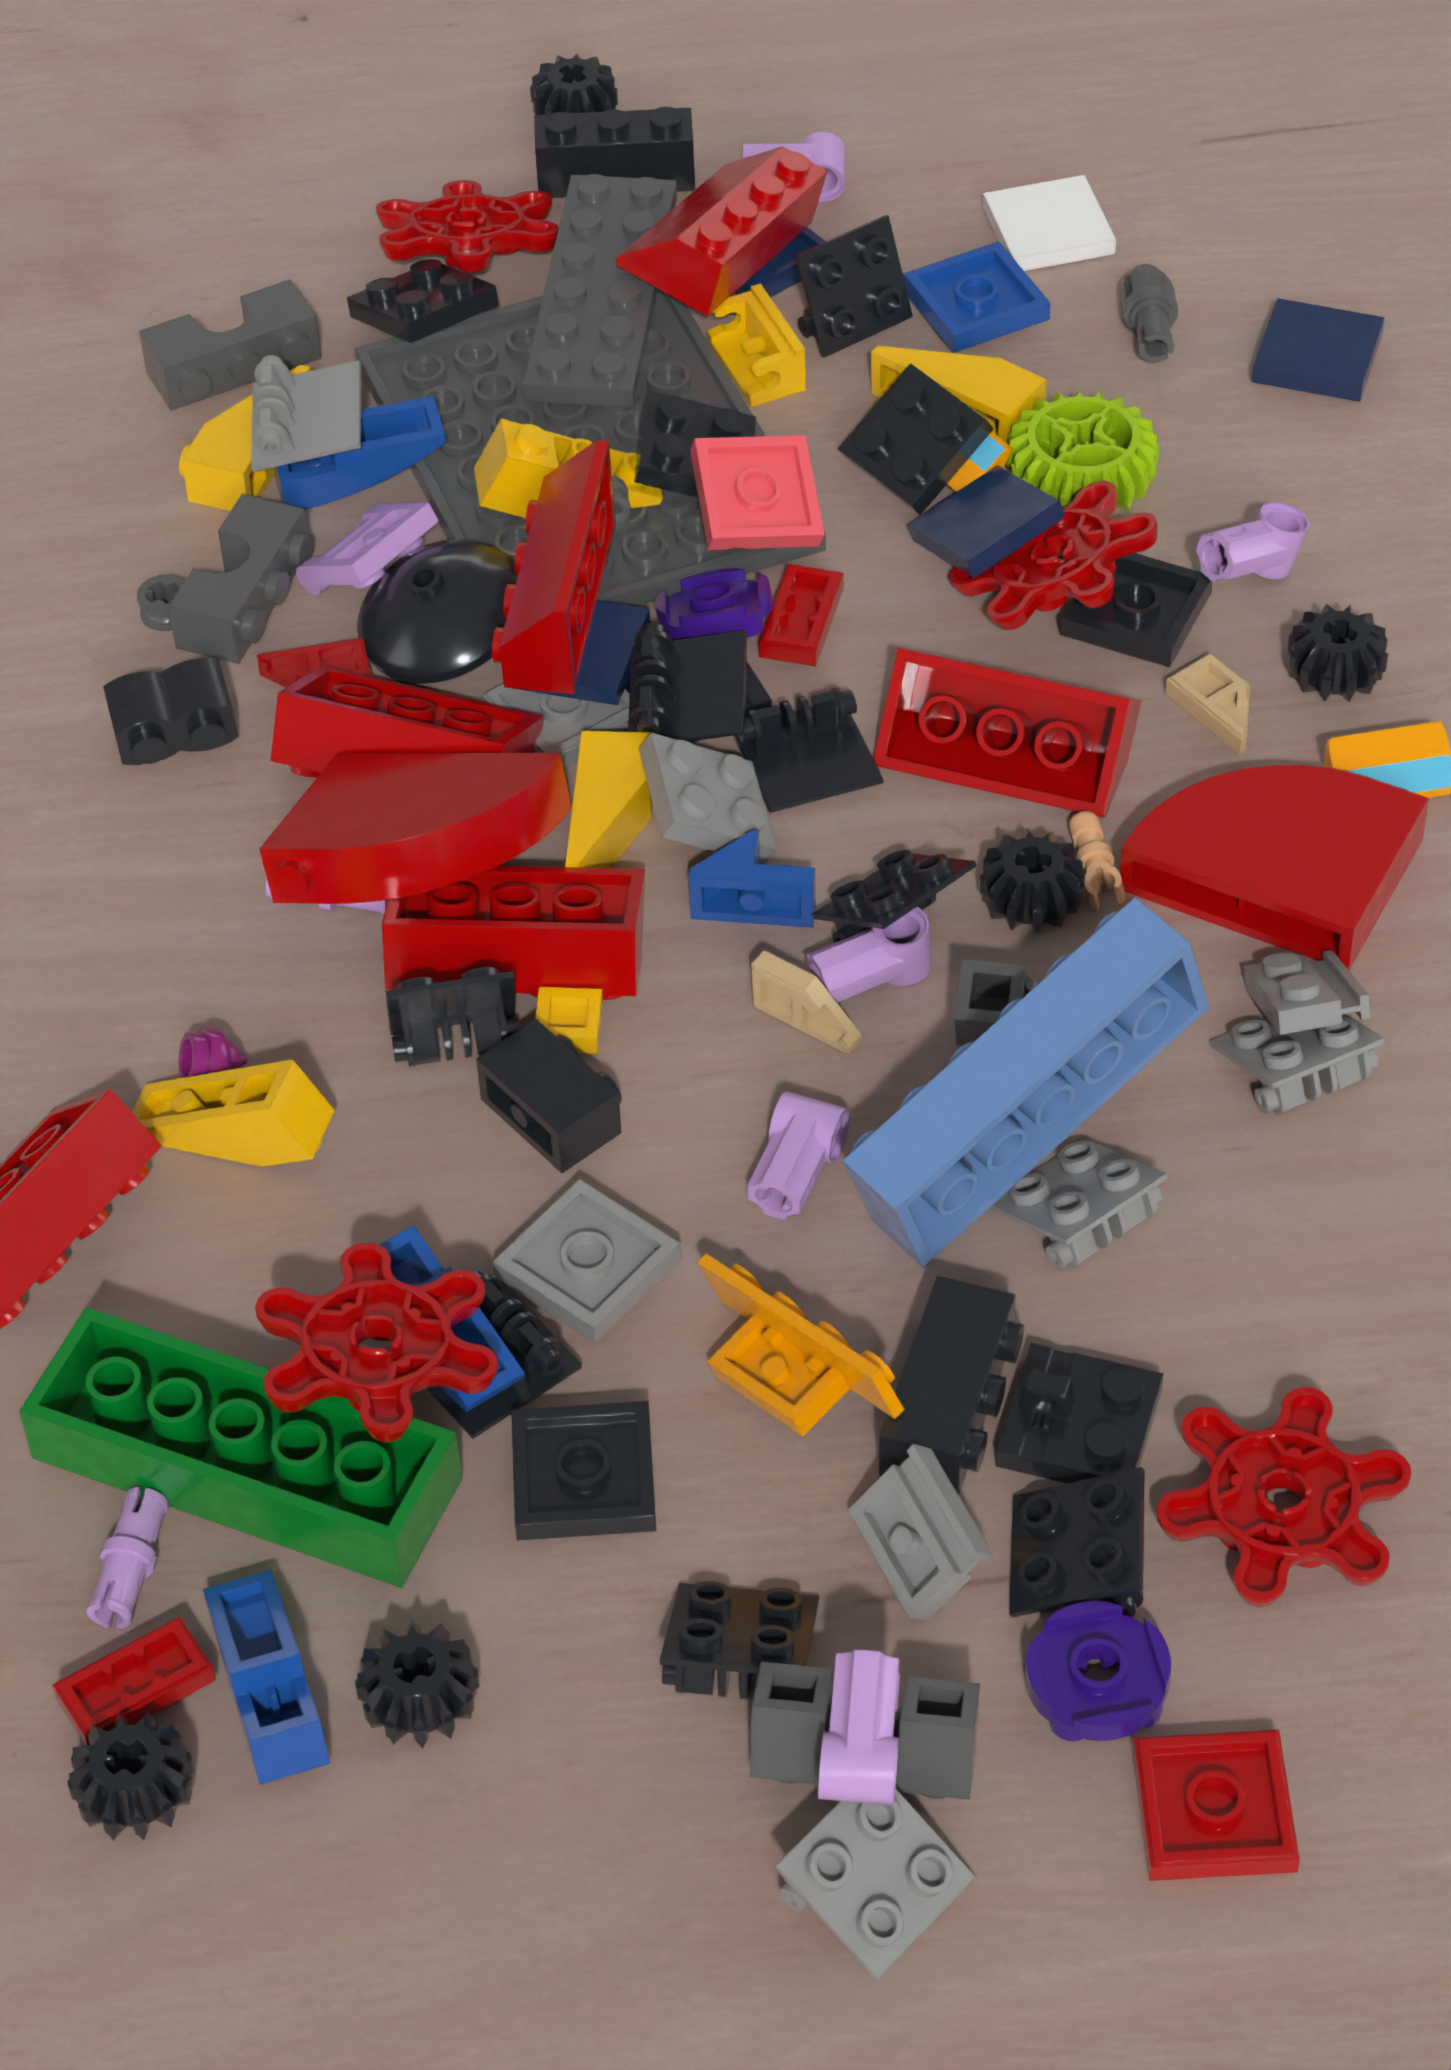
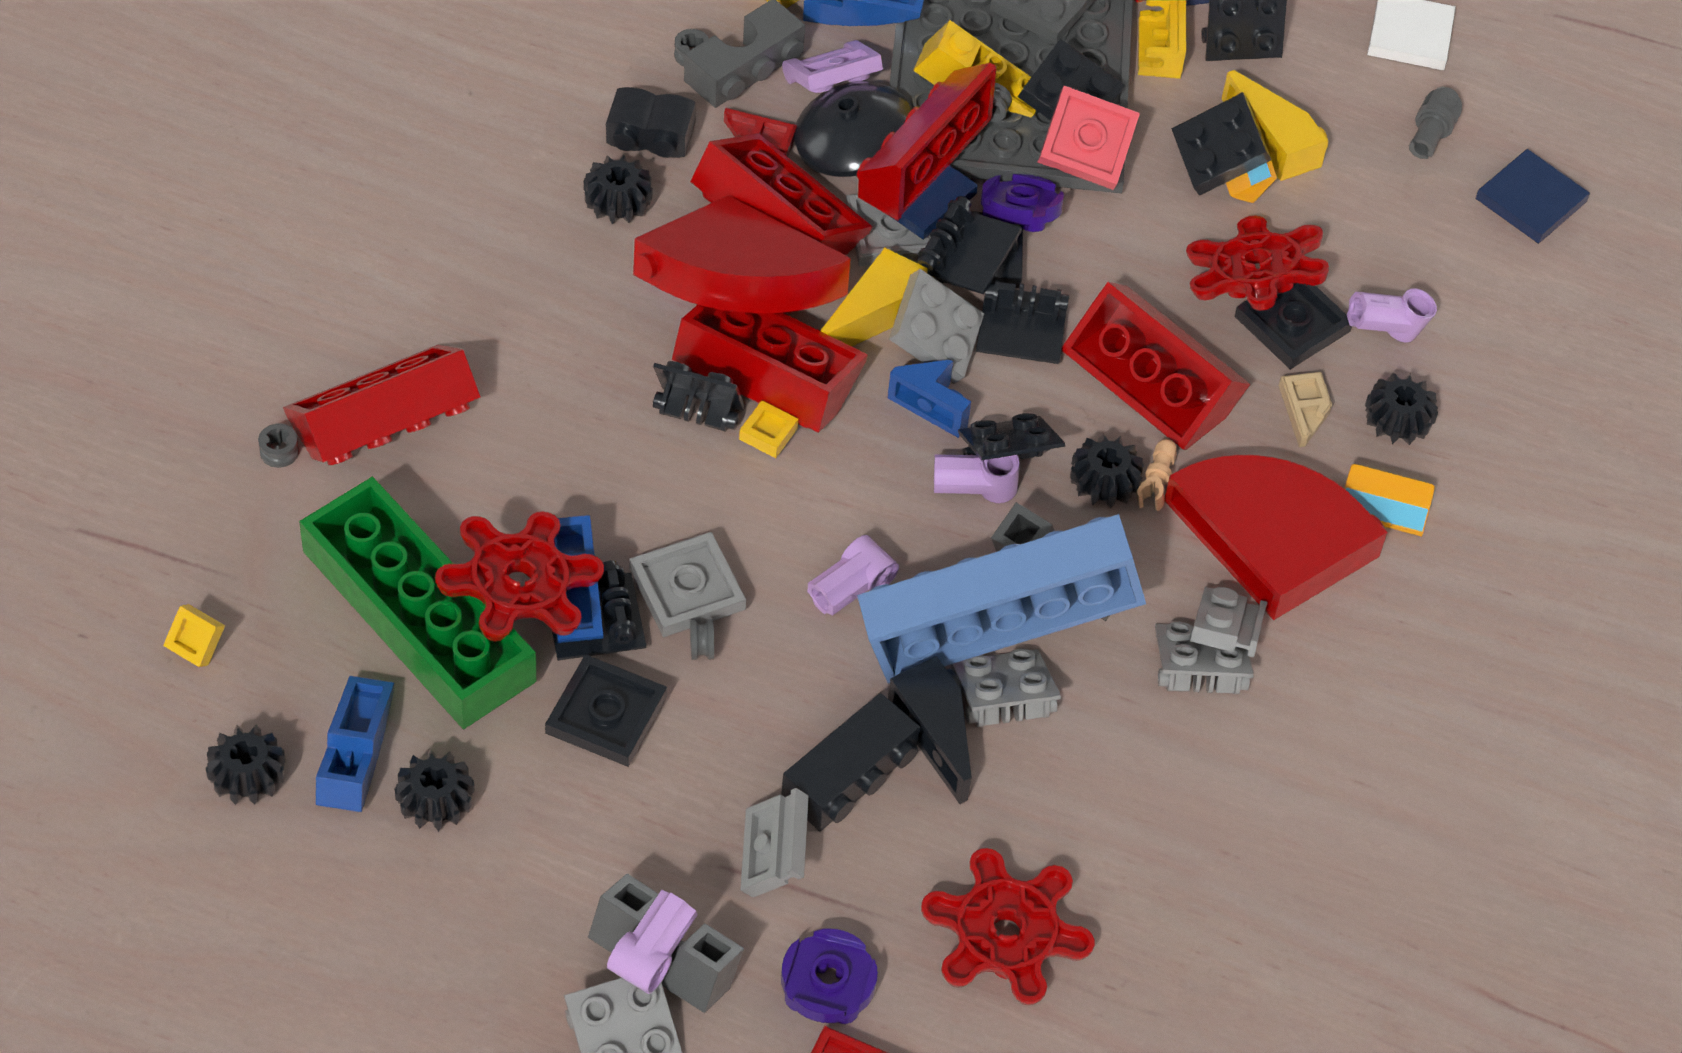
camera: 20 degrees right, 5 degrees up
(127, 1558) = (320, 636): lavender pin -> none
(135, 1679) = (282, 710): red plate -> none
(179, 810) = (618, 189): none -> black gear
(208, 1053) = (543, 356): magenta plate -> none
(239, 1114) = (537, 398): yellow slope -> none
(550, 1095) = (728, 471): black brick -> none
(652, 1321) = (702, 639): none -> dark grey bush
(733, 1632) = (632, 846): black hinge -> none
(787, 1361) = (758, 705): light orange bracket -> none
(801, 615) = (1076, 230): red plate -> none
(801, 1002) = (915, 483): tan tile -> none
(976, 296) = (1328, 62): blue plate -> none
(986, 521) = (1230, 219): dark blue tile -> none
(1015, 1256) = (934, 702): none -> black slope
(1077, 1416) = (919, 821): black hinge -> none
(1079, 1544) = (868, 896): black hinge -> none
(1084, 442) = (1327, 191): lime gear -> none

